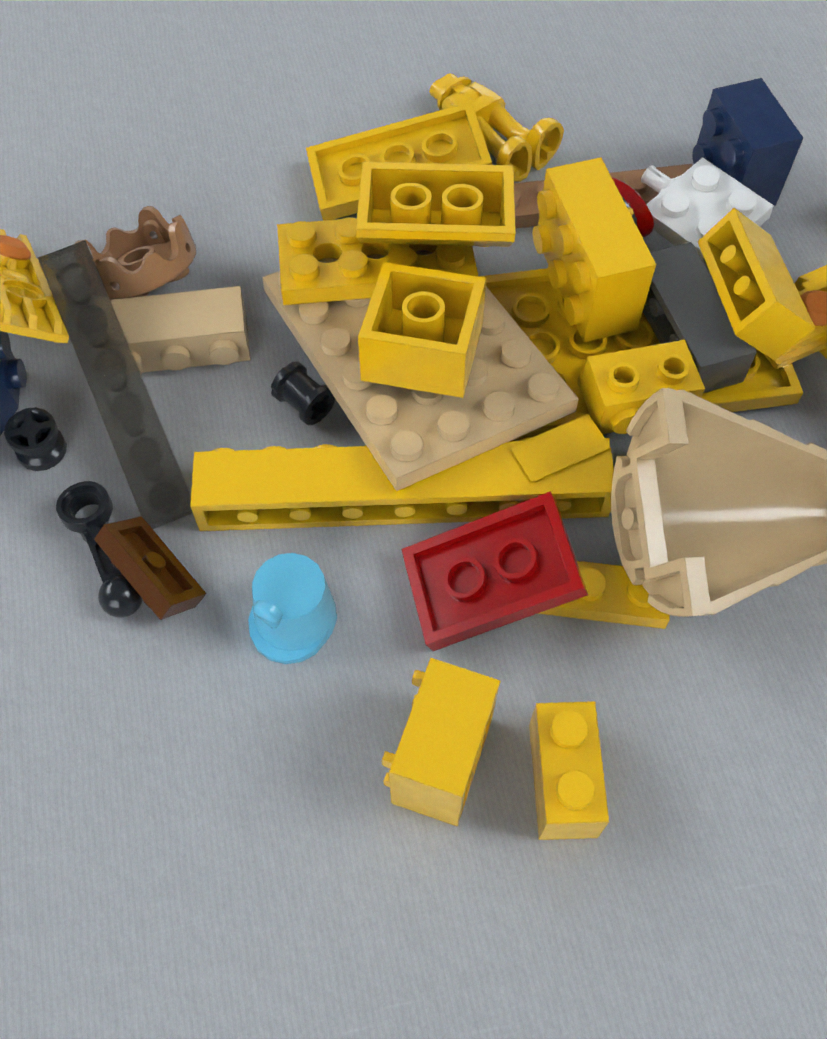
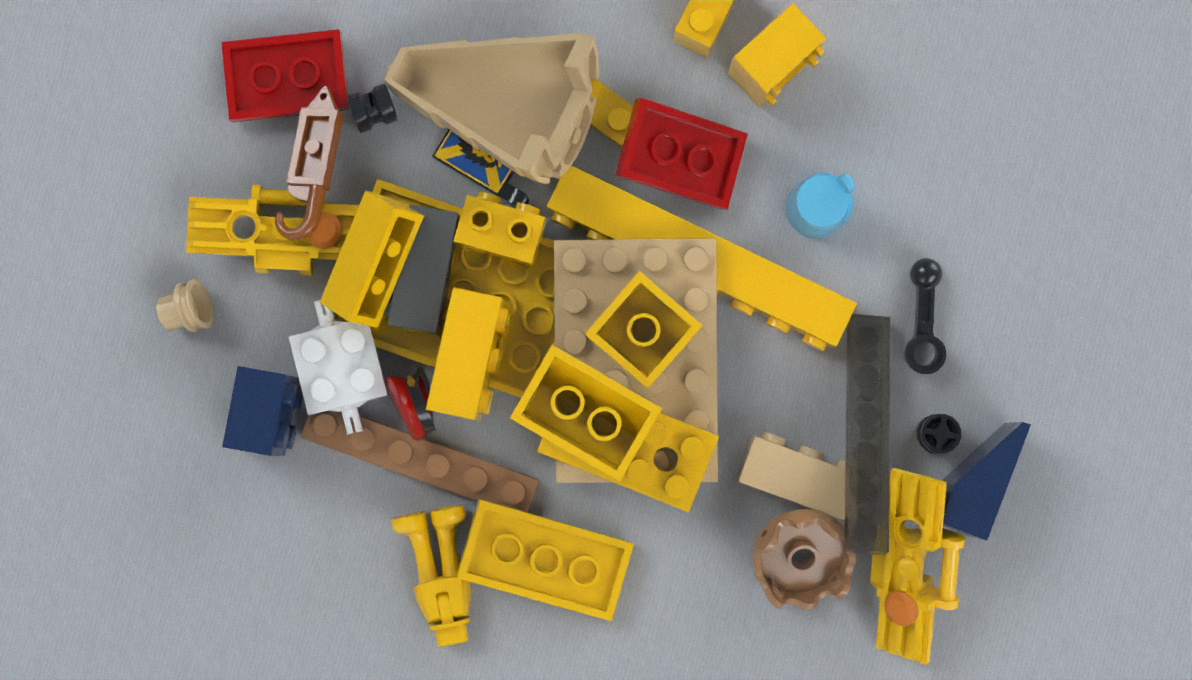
camera: 150 degrees left, 25 degrees up
(150, 567) = (899, 279): reddish brown plate -> none
(302, 393) = (732, 372): black bush -> none
(560, 447) = (585, 215): yellow sticker -> none

